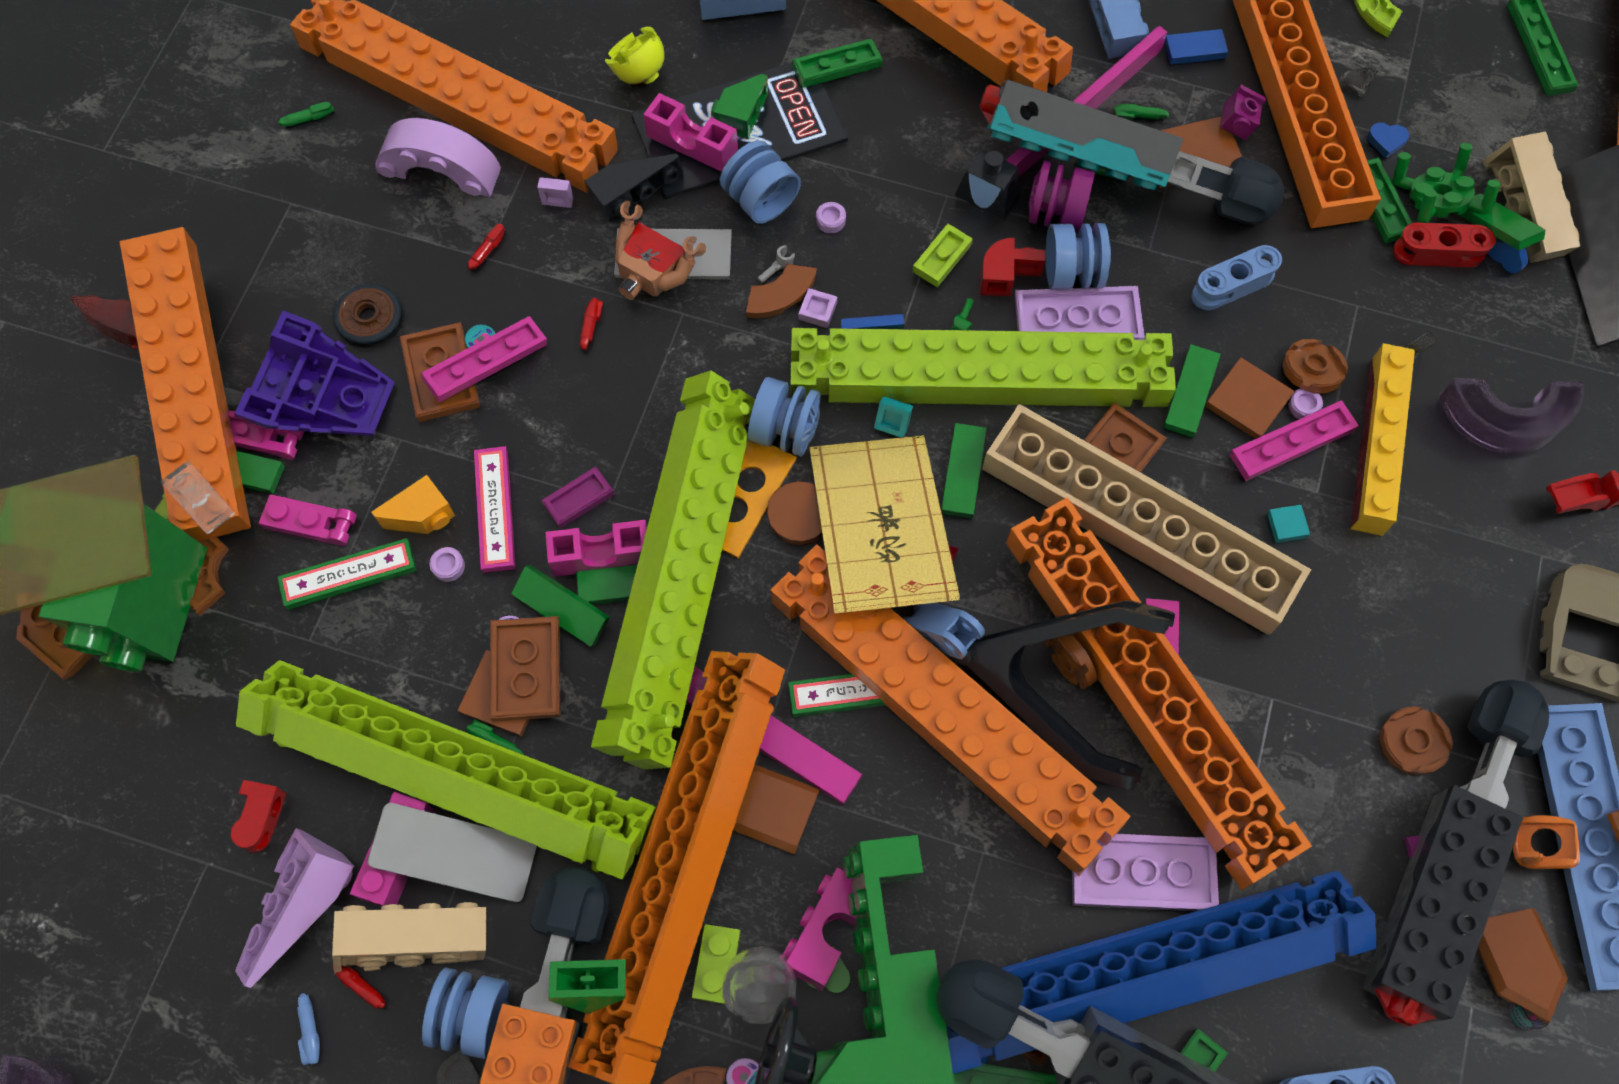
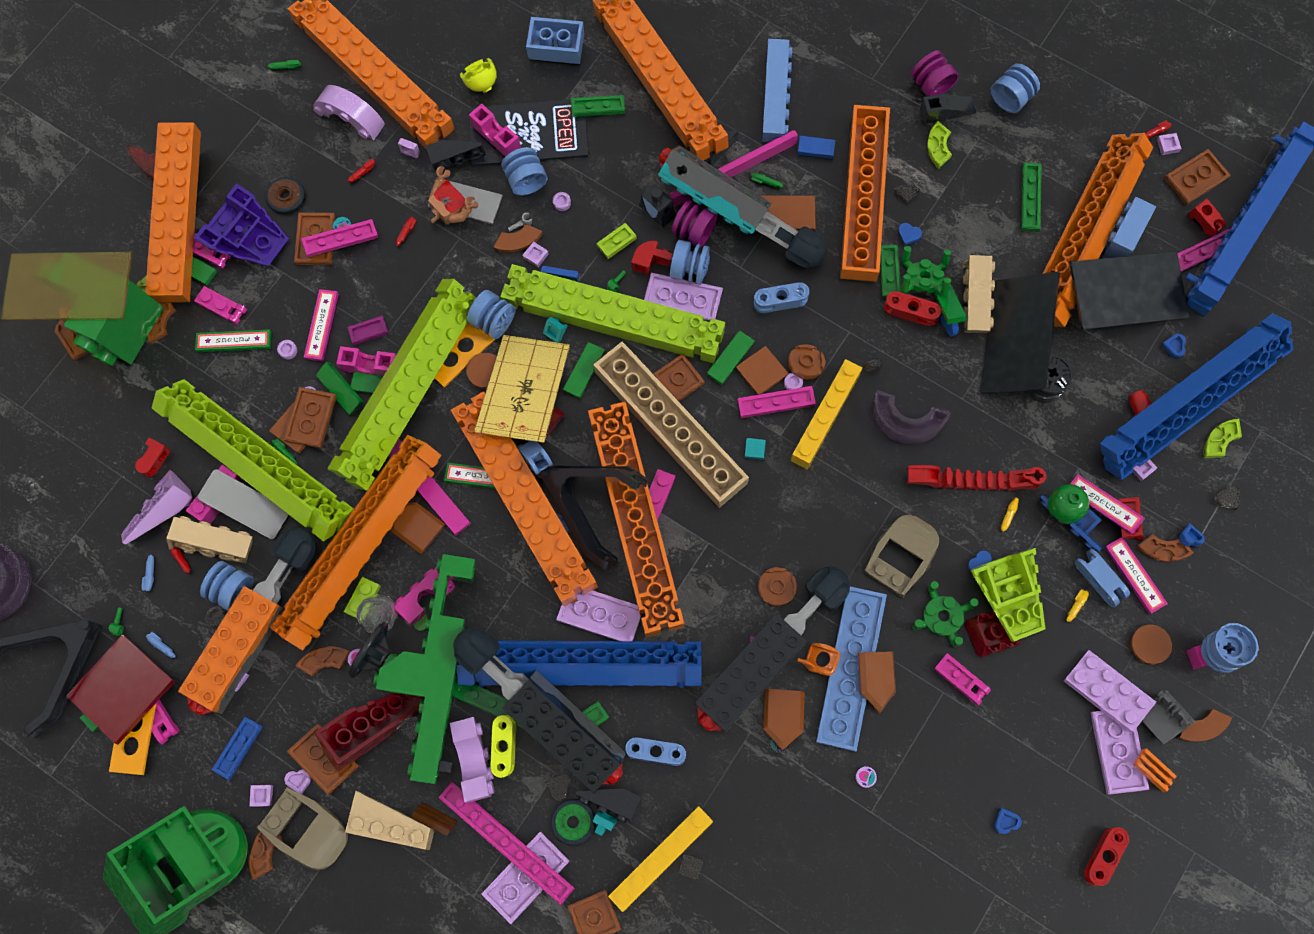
camera: 20 degrees right, 5 degrees up
(197, 497) = (161, 280): clear slope -> none
(415, 509) = (278, 314): light orange slope -> none
(587, 983) = (288, 588): green slope -> none
(742, 104) = (530, 121): green slope -> none
(1072, 661) = (600, 492): dark orange tile -> none
(1242, 112) = (824, 197): magenta brick -> none

